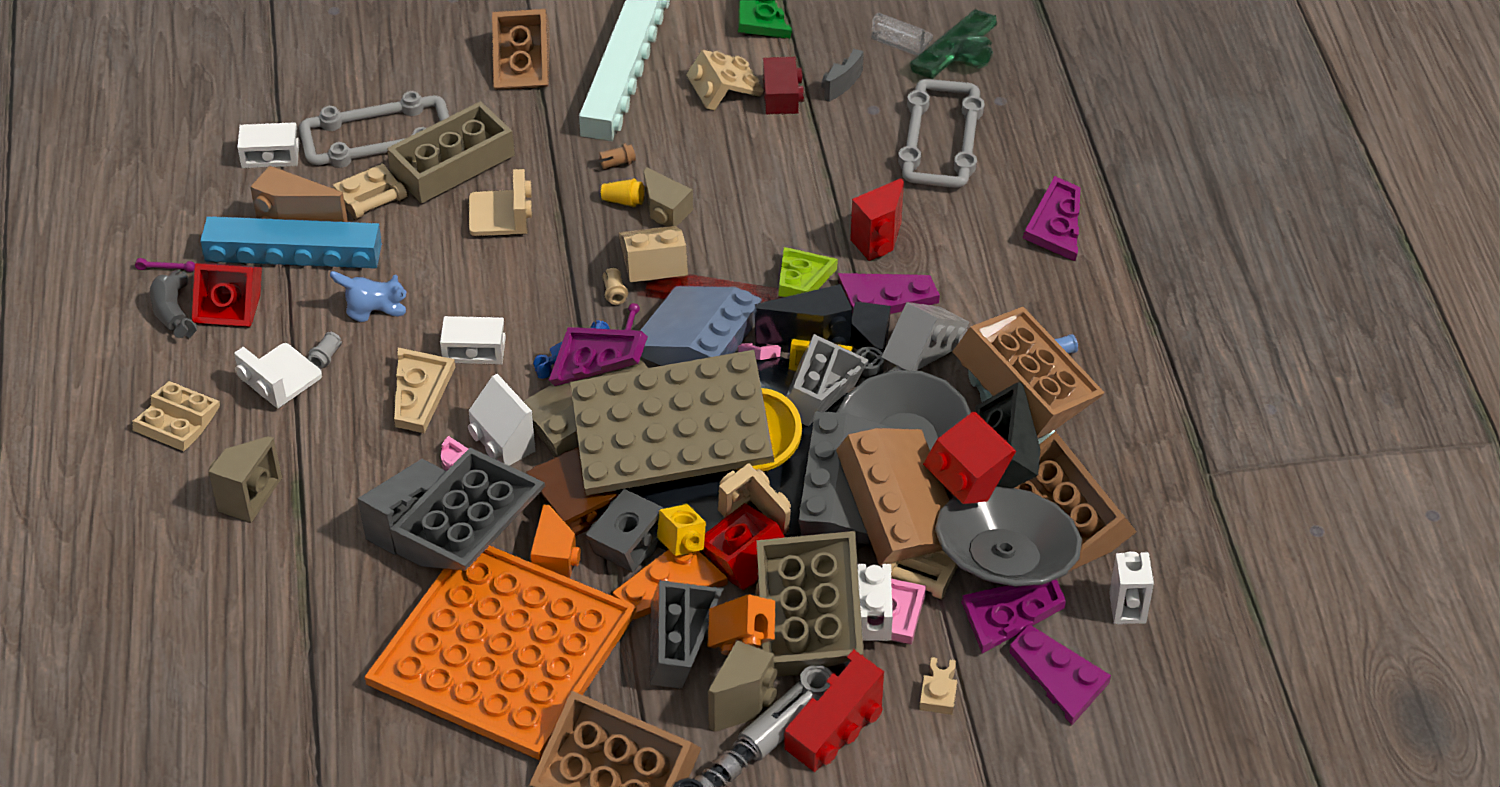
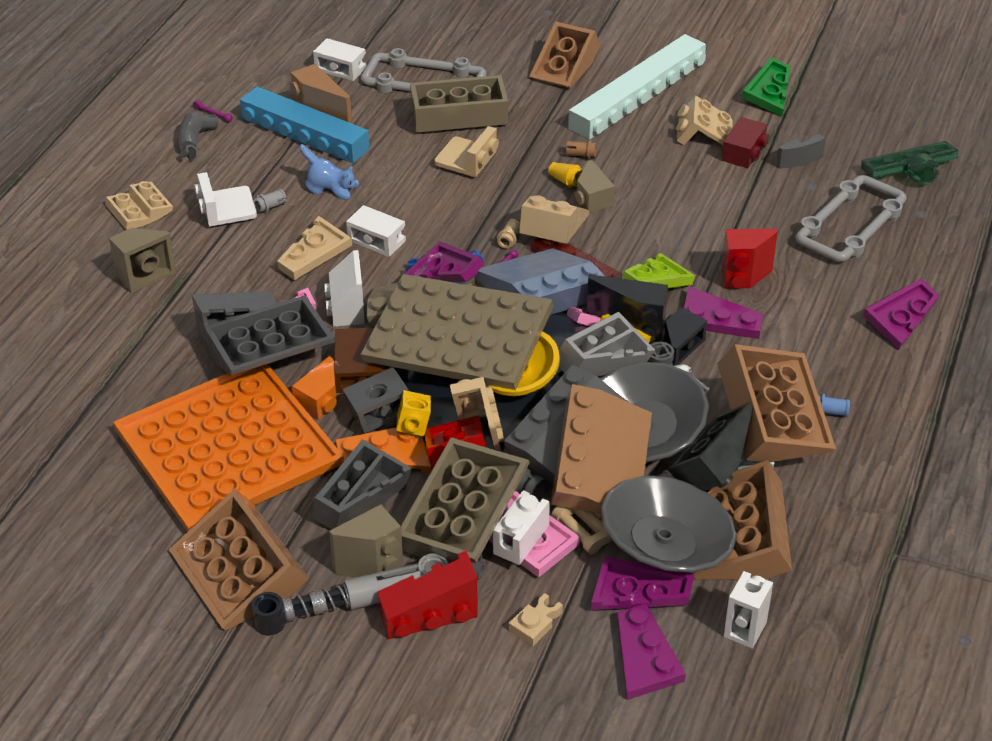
camera: 30 degrees right, 5 degrees down
(225, 294) = (233, 140): red slope -> none
(370, 190) = (386, 111): tan plate -> none
(742, 619) = (399, 494): orange brick -> none
(900, 34) = (869, 138): clear panel -> none
(923, 336) = (706, 345): light grey wedge -> none
(970, 459) = (668, 448): red slope -> none

